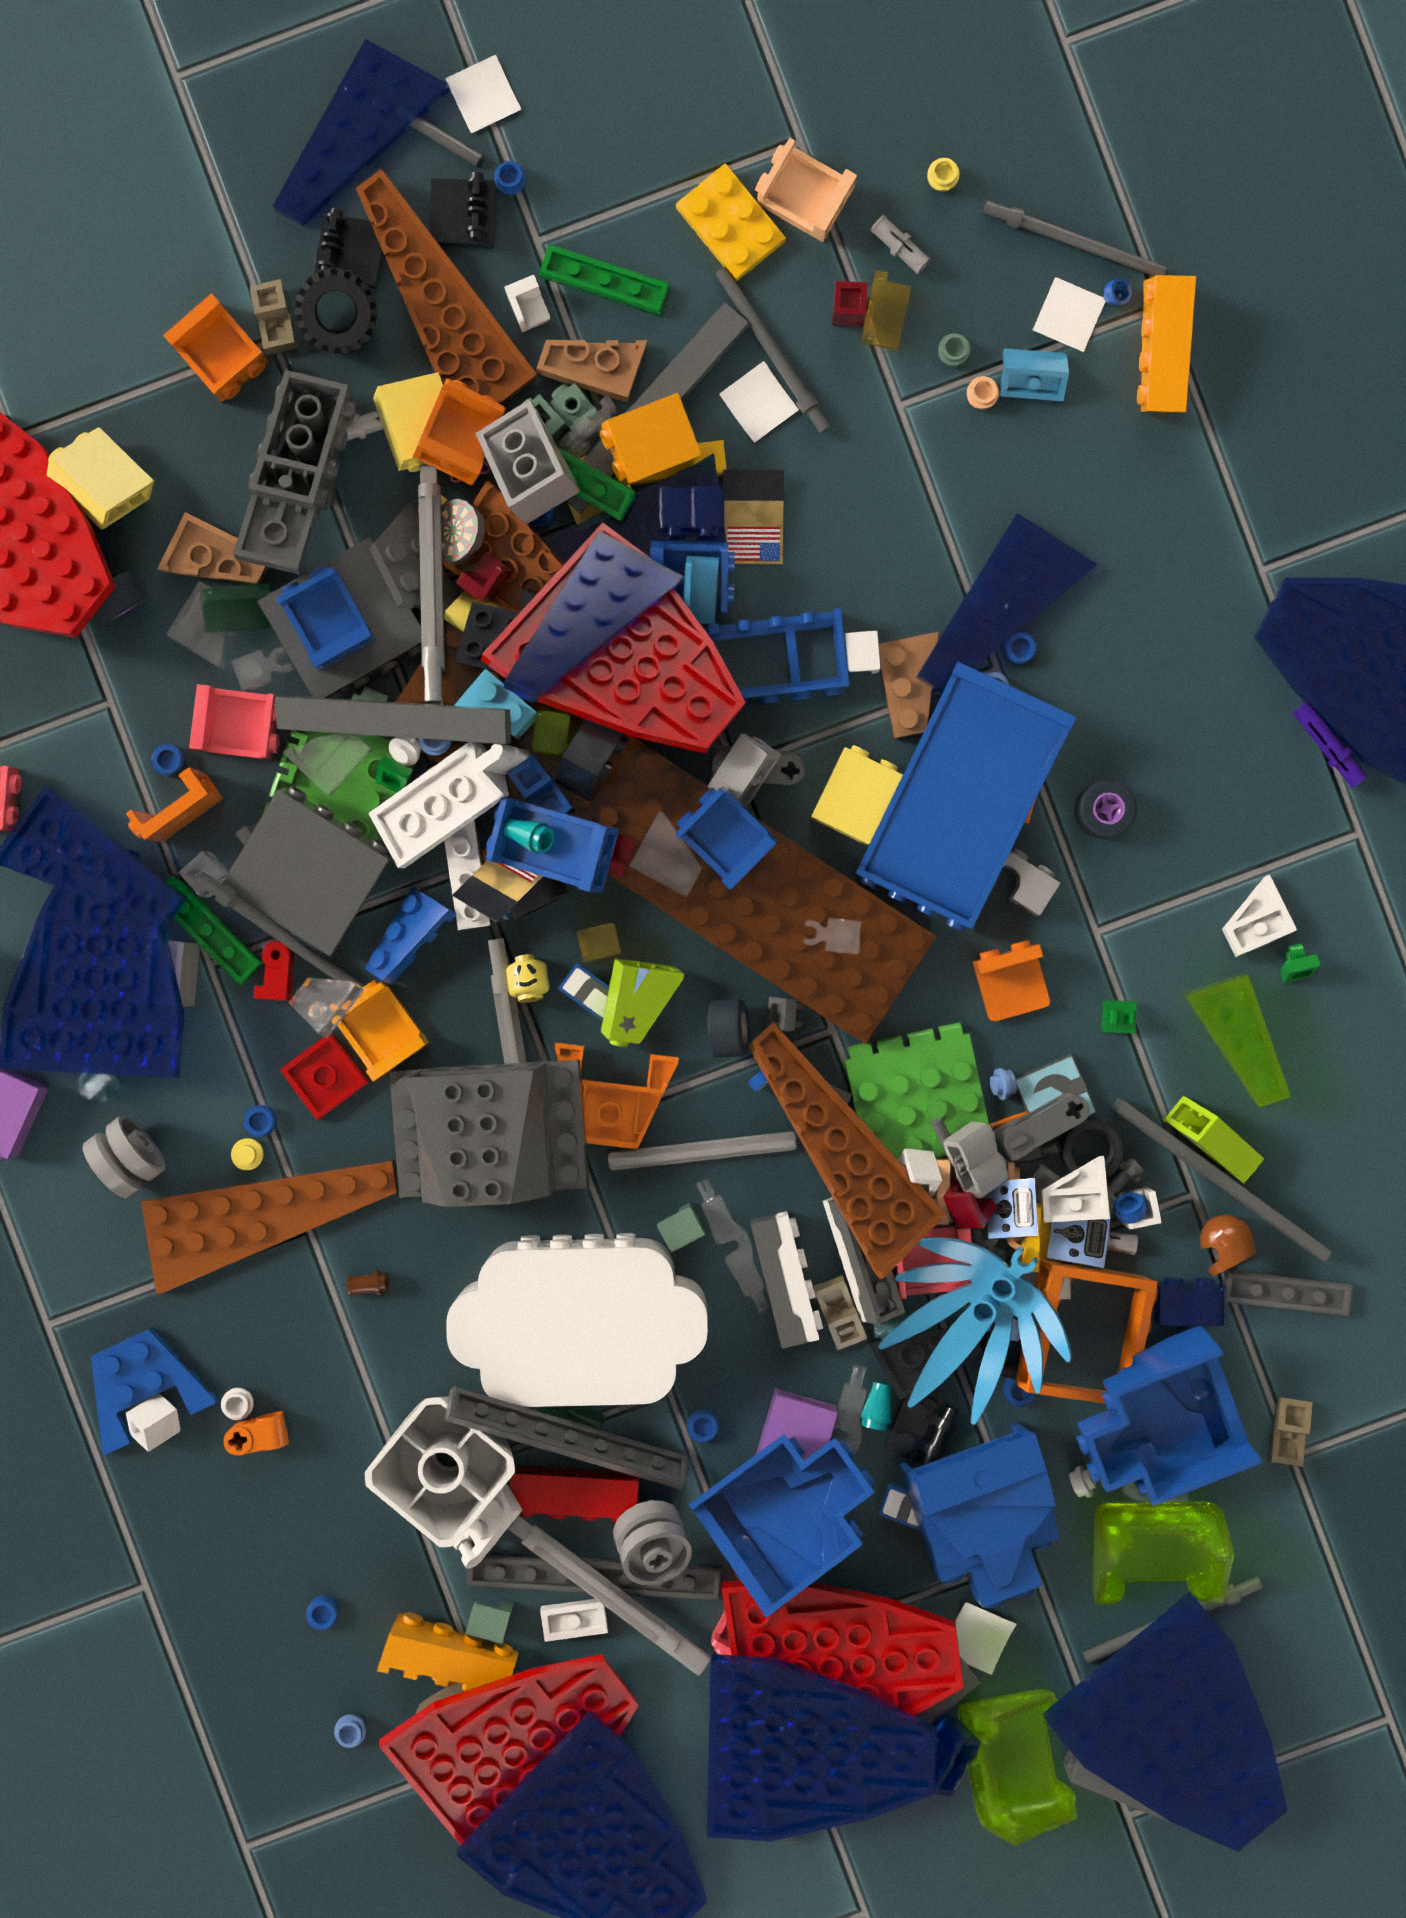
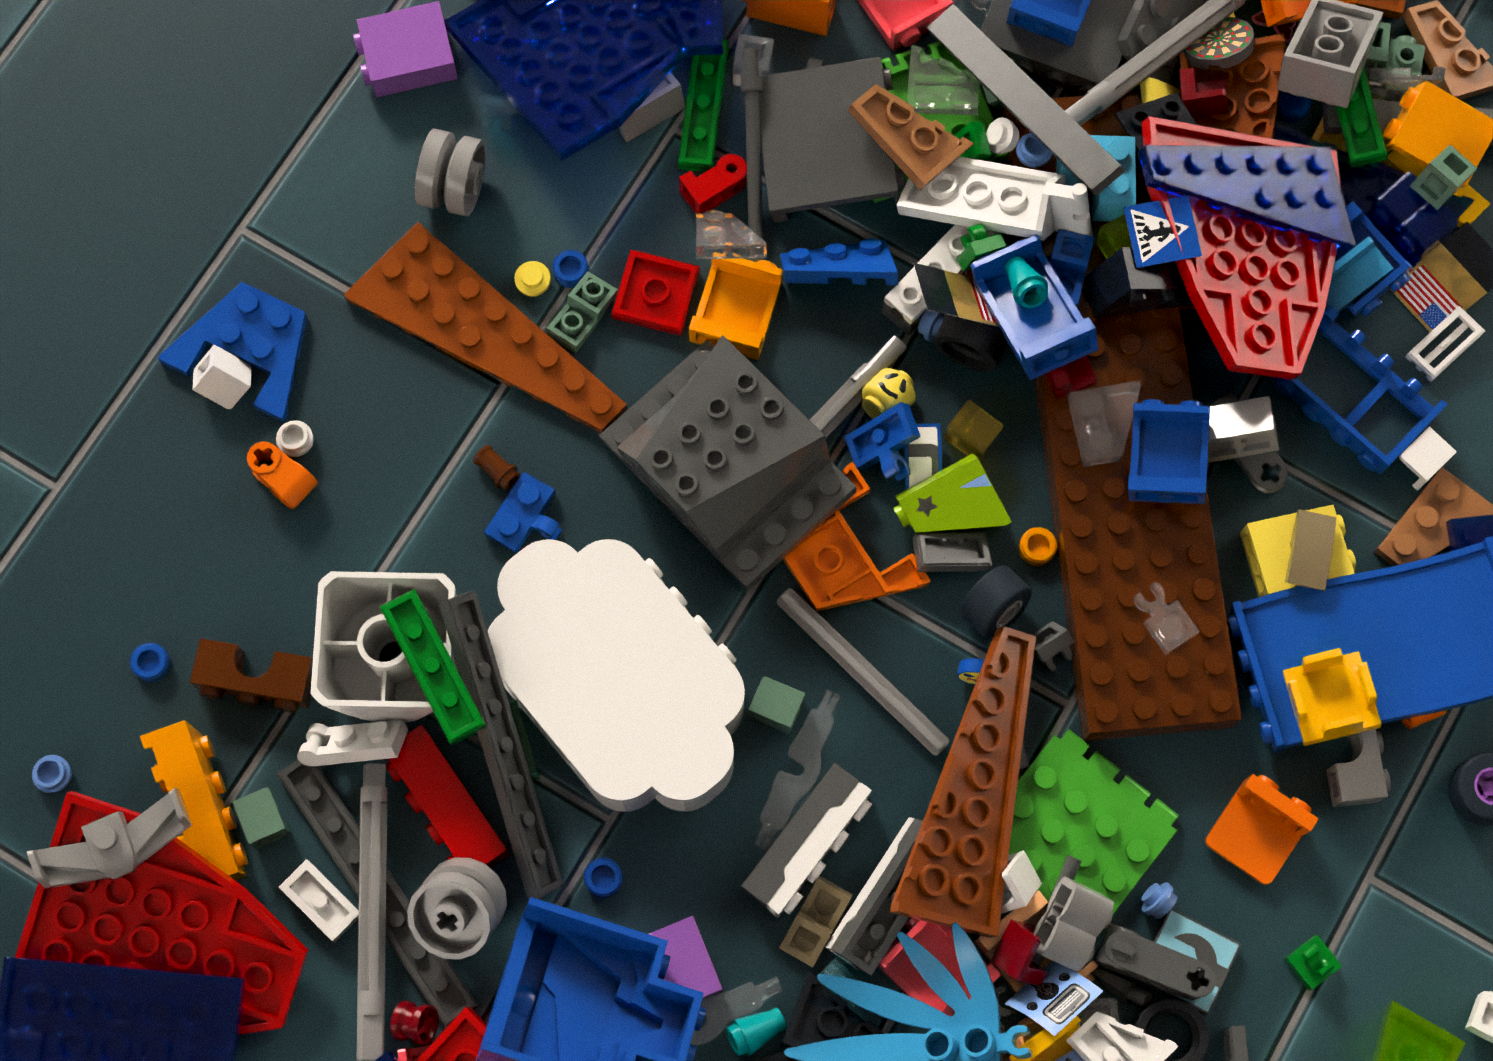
camera: 50 degrees right, 15 degrees down
(299, 1138) = (582, 312): none -> sand green slope
(359, 821) = (910, 140): none -> medium nougat wing
(366, 1573) = (220, 672): none -> reddish brown arch
(414, 1291) = (523, 513): none -> blue plate
(438, 1741) = (112, 845): none -> light grey plate
(476, 839) = (978, 245): none -> green tile
(485, 1455) = (433, 667): none -> green tile
(557, 1012) = (882, 439): none -> blue plate
(571, 727) = (1153, 236): none -> blue sticker
(670, 1027) = (951, 552): none -> dark grey plate
(685, 472) = (1443, 177): none -> sand green brick
(701, 1619) = (414, 1022): none -> dark red wheel
(711, 963) = (1037, 546): none -> light orange tile
(796, 591) = (1424, 364): none -> white tile
(864, 793) = (1311, 550): none -> dark tan slope
(971, 869) = (1332, 696): none -> yellow panel

